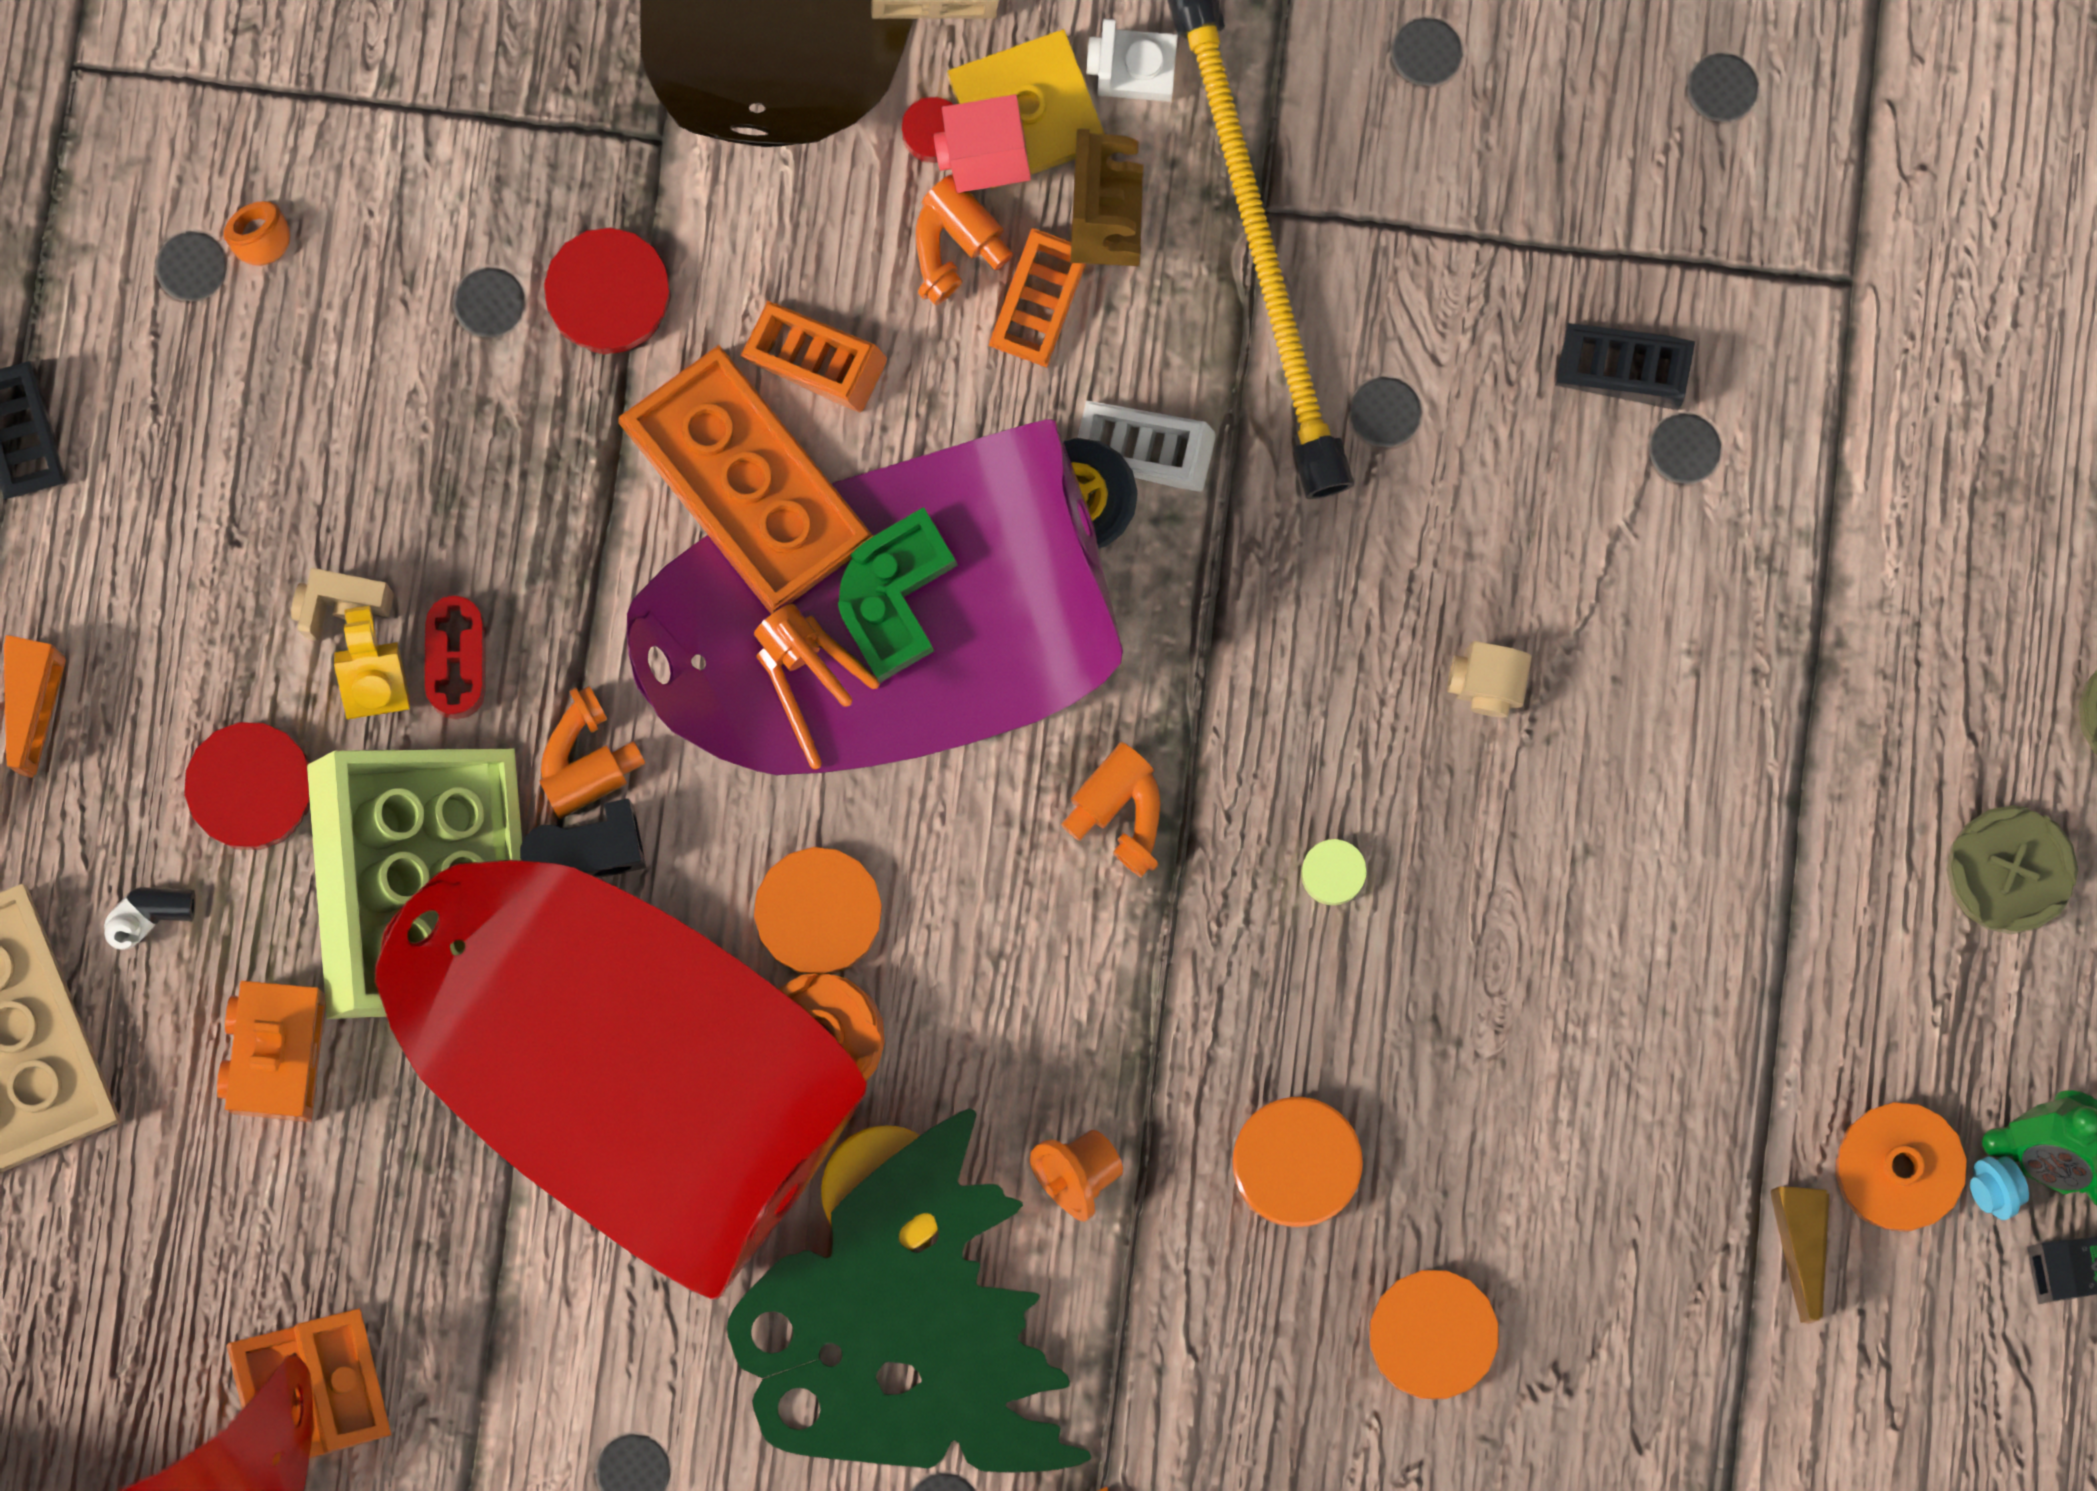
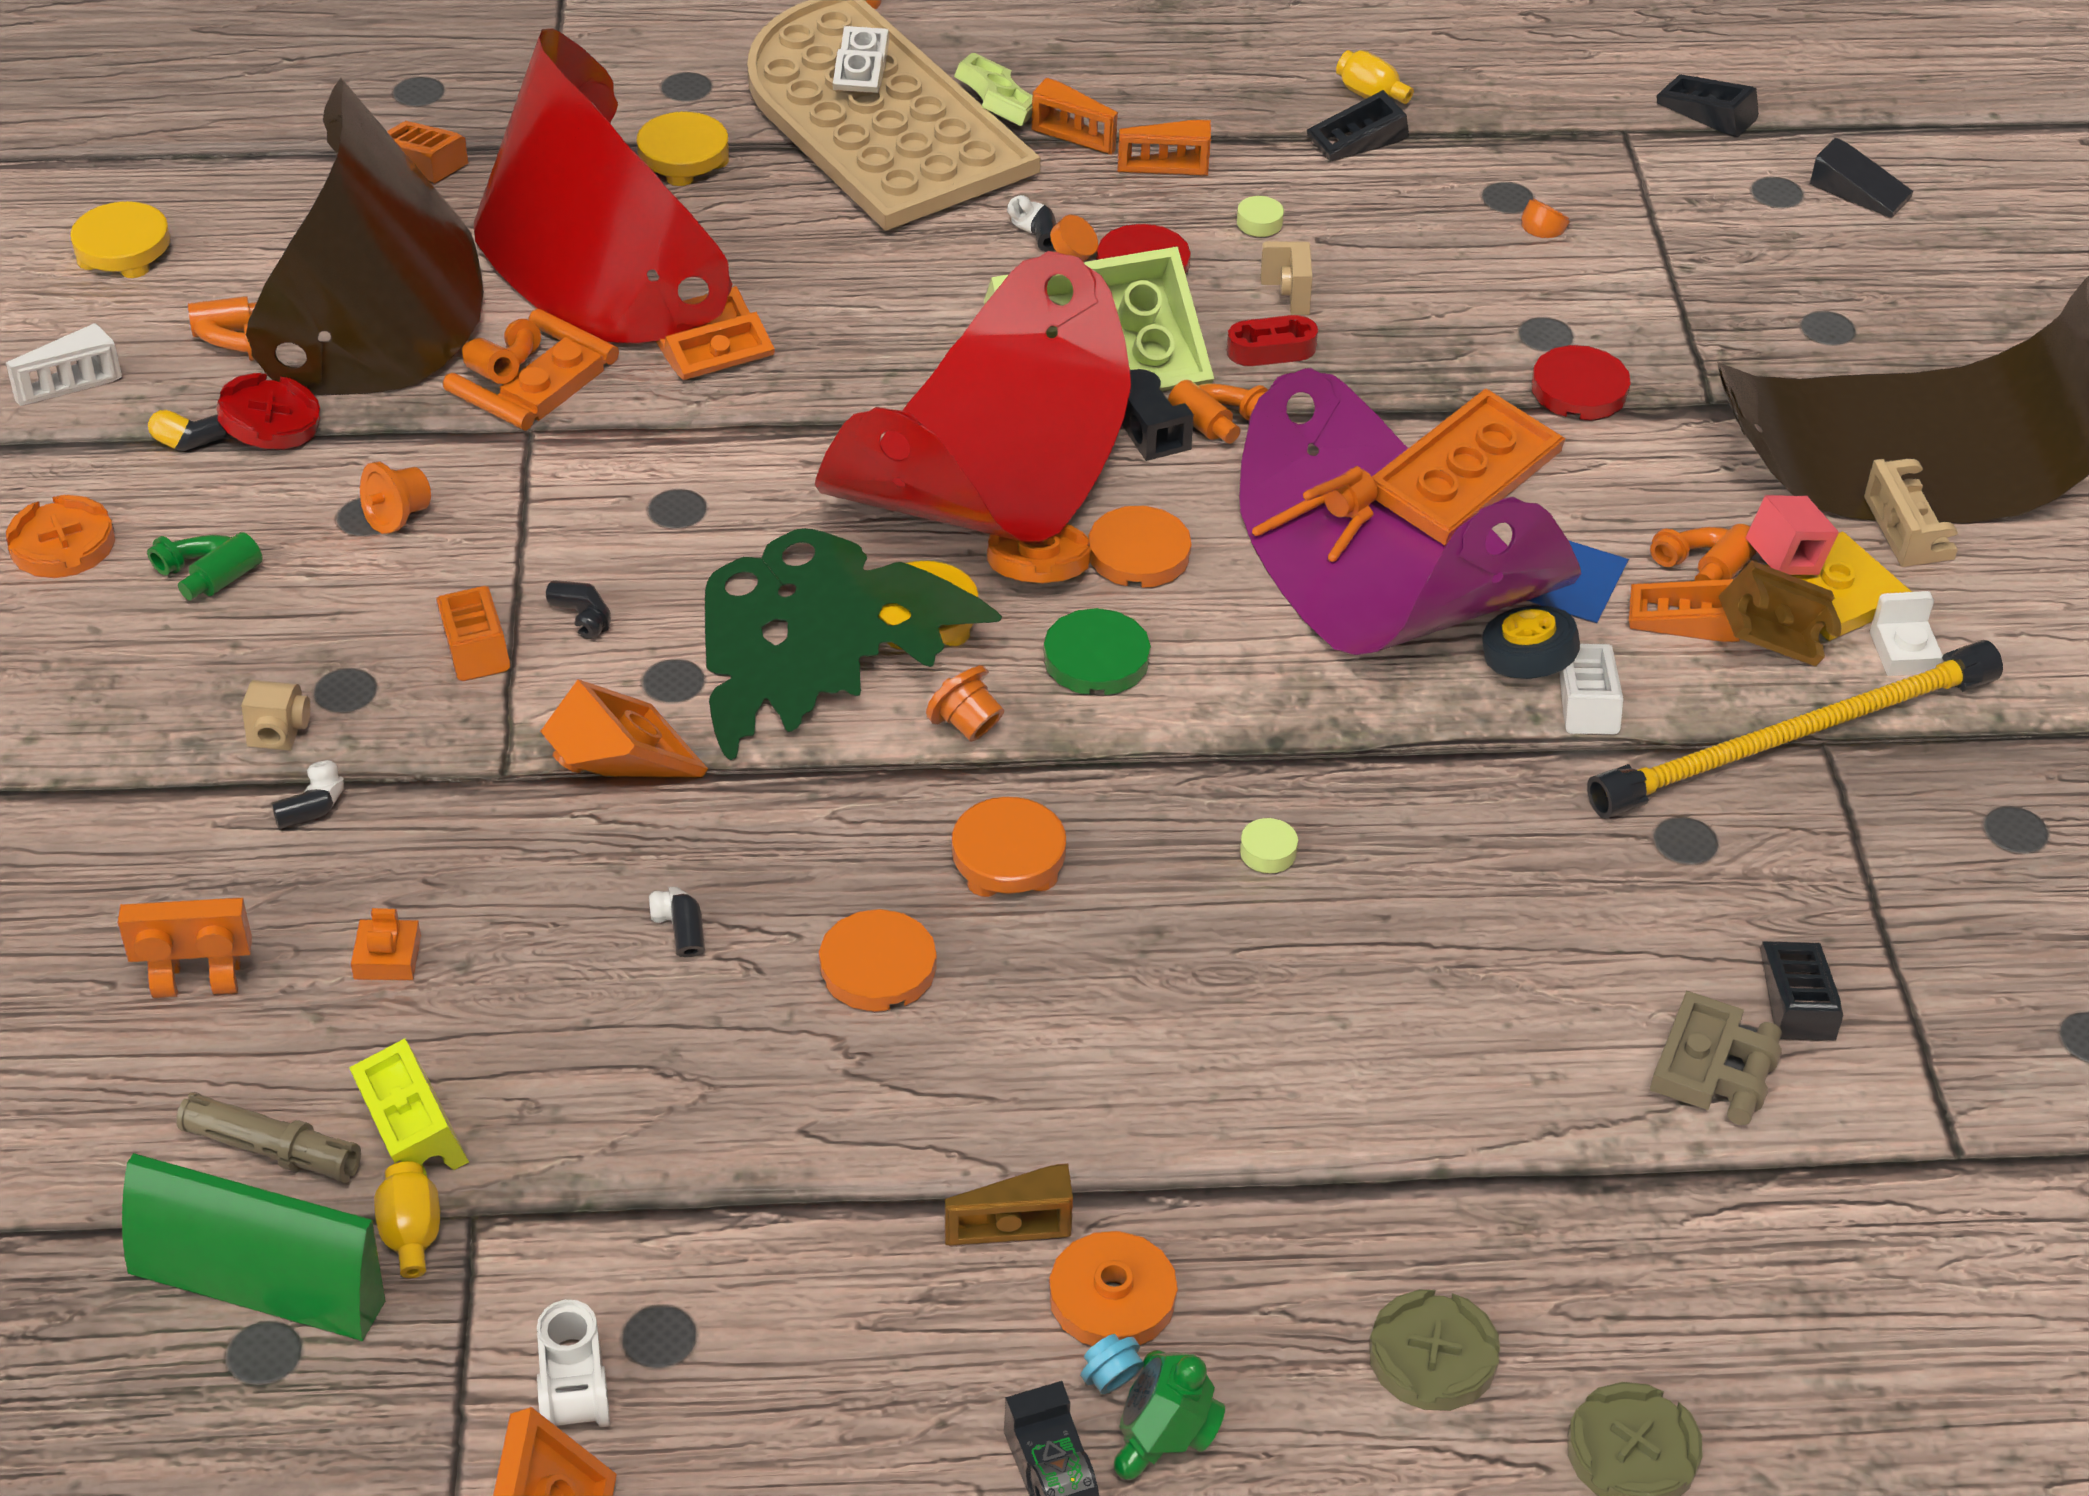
camera: 80 degrees right, 35 degrees down
(186, 609) = (1260, 216): none -> yellowish green tile
(205, 871) = (1074, 237): none -> orange tile
(272, 1051) = (948, 280): orange brick -> none
(369, 673) = (1245, 289): yellow plate -> none
(860, 378) = (1579, 494): orange slope -> none
(874, 589) = (1383, 545): green plate -> none
(948, 399) = (1592, 589): none -> blue sticker
(993, 1000) = (1096, 651): none -> green tile
(1105, 793) = (1295, 697): orange plant -> none
(1490, 678) = (1476, 917): tan plate -> none
(1701, 499) = (1696, 1056): none -> dark tan plate

